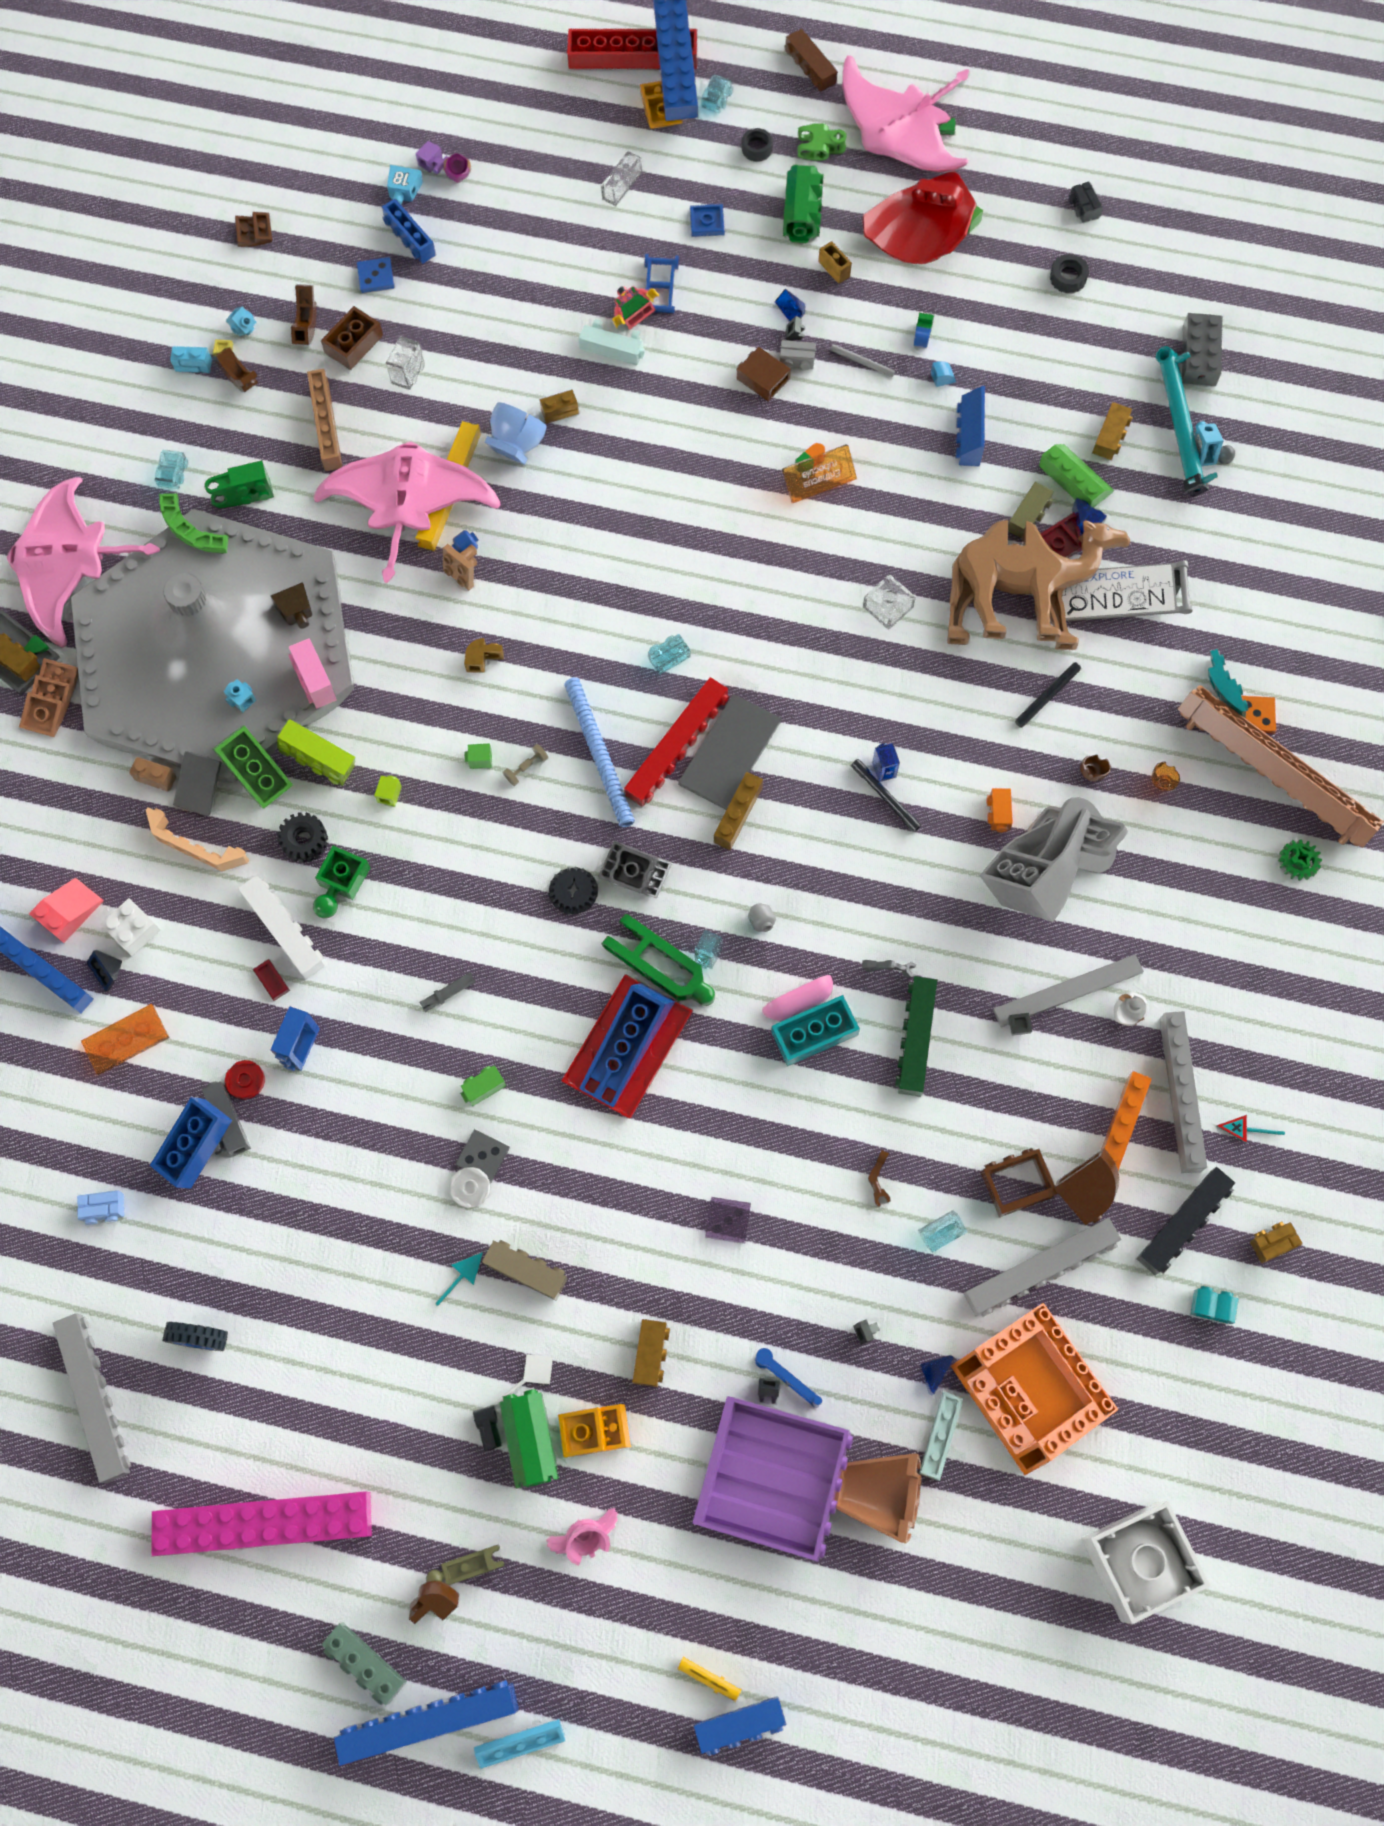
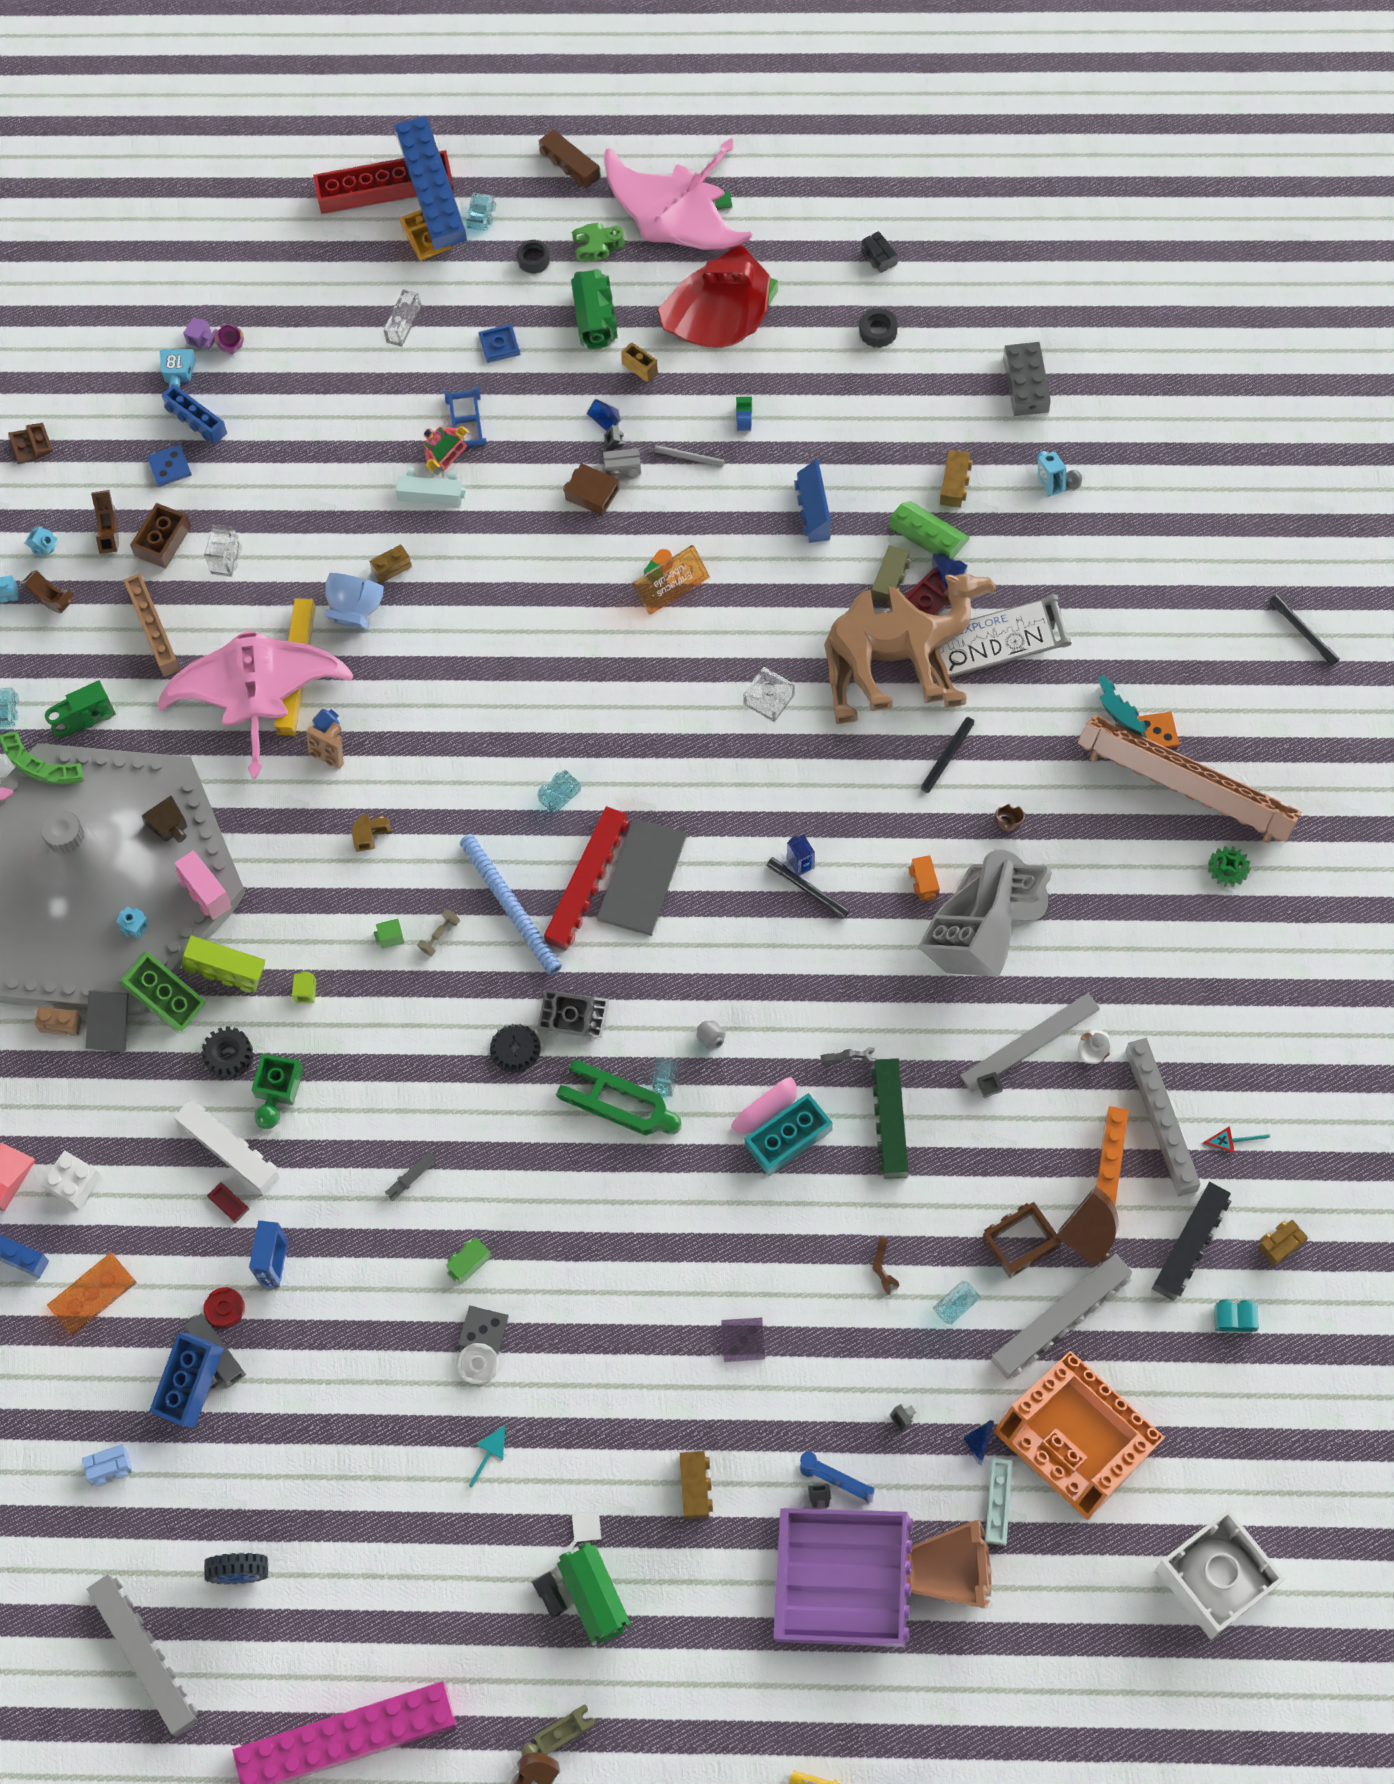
camera: 10 degrees left, 5 degrees down
(104, 968) = (54, 1227): black slope -> none
(220, 345) = (24, 569): light yellow tile -> none
(230, 859) = (159, 1089): light nougat slope -> none
(524, 1269) = (551, 1431): dark tan brick -> none
(584, 1537) = (670, 1677): bright pink helmet -> none
(594, 1430) = (656, 1573): light orange slope -> none
(627, 1046) = (604, 1190): piece -> none
(738, 811) = (663, 934): pearl gold brick -> none
(942, 373) = (772, 454): dark azure brick -> none
(1165, 777) = (1080, 812): clear orange hair -> none
(1194, 480) = (1047, 514): teal piece -> none

